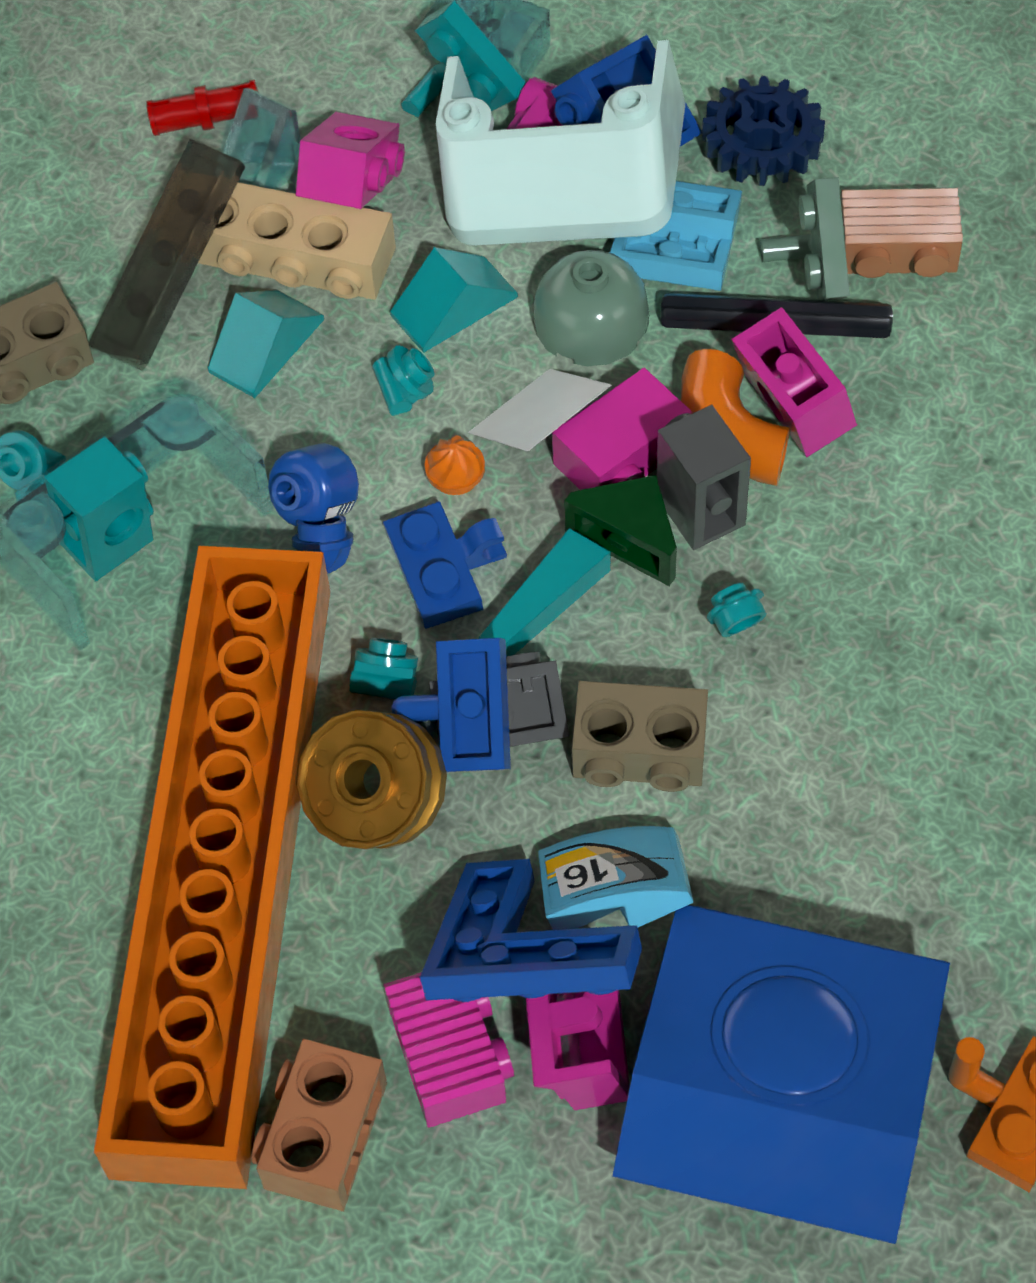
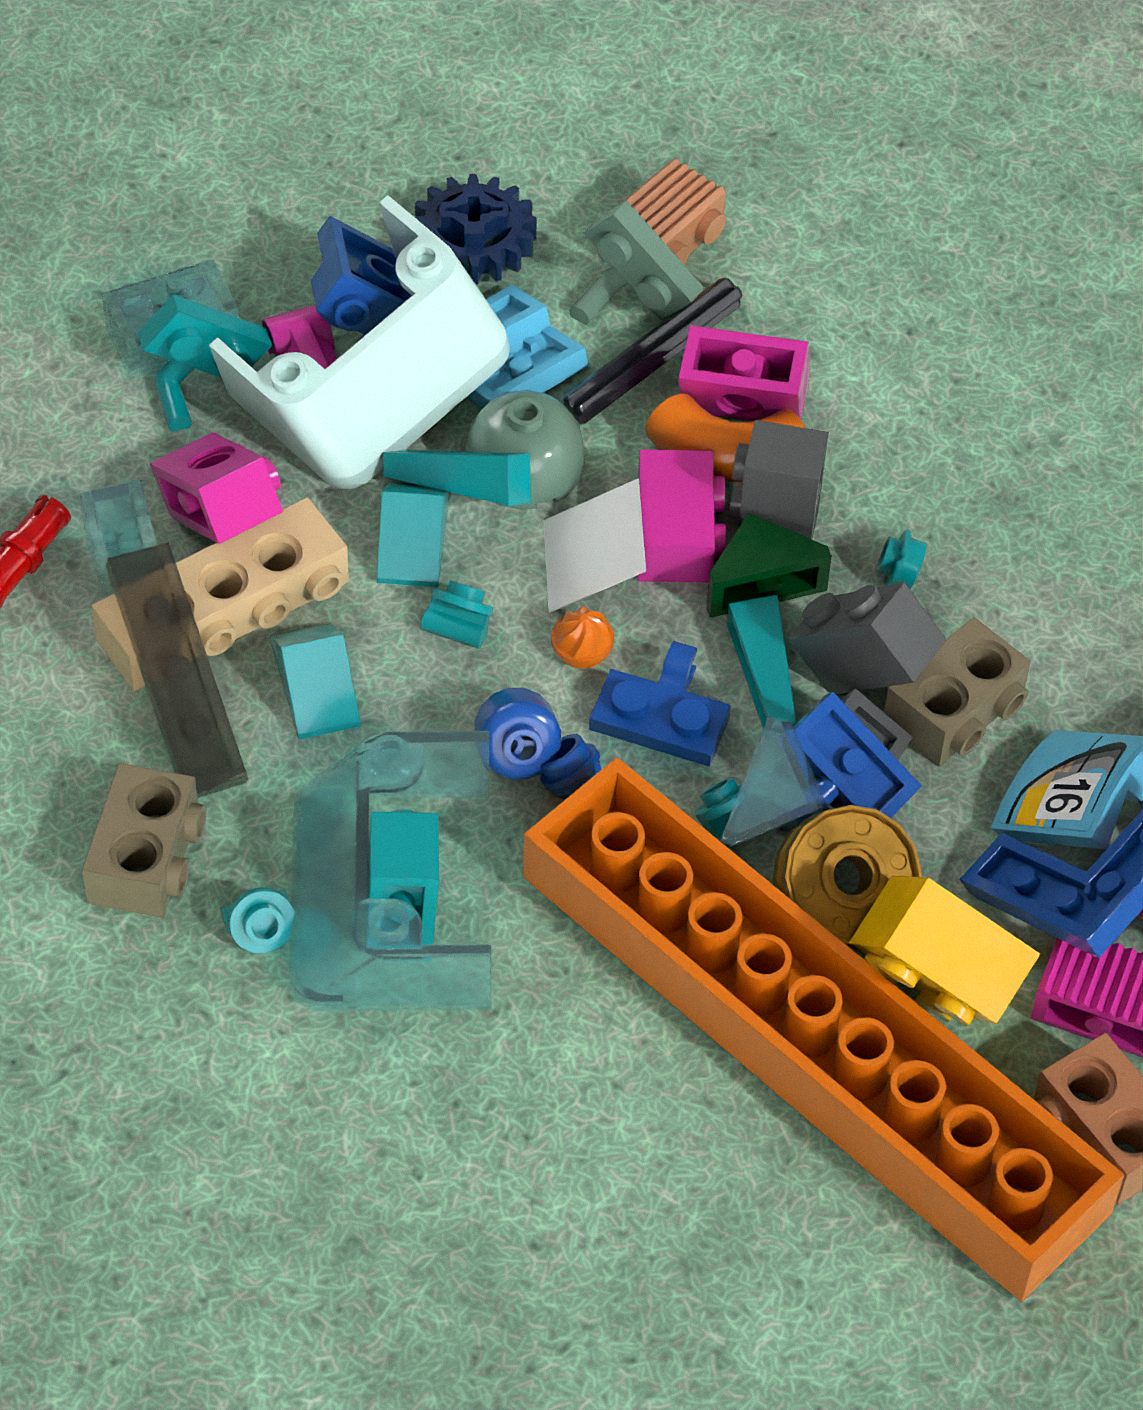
camera: 55 degrees left, 5 degrees down
(335, 885) = (944, 950): none -> yellow brick
(384, 662) = (775, 788): none -> clear light blue slope
(515, 286) = (475, 474): none -> teal piece
(606, 632) = (867, 638): none -> dark grey brick

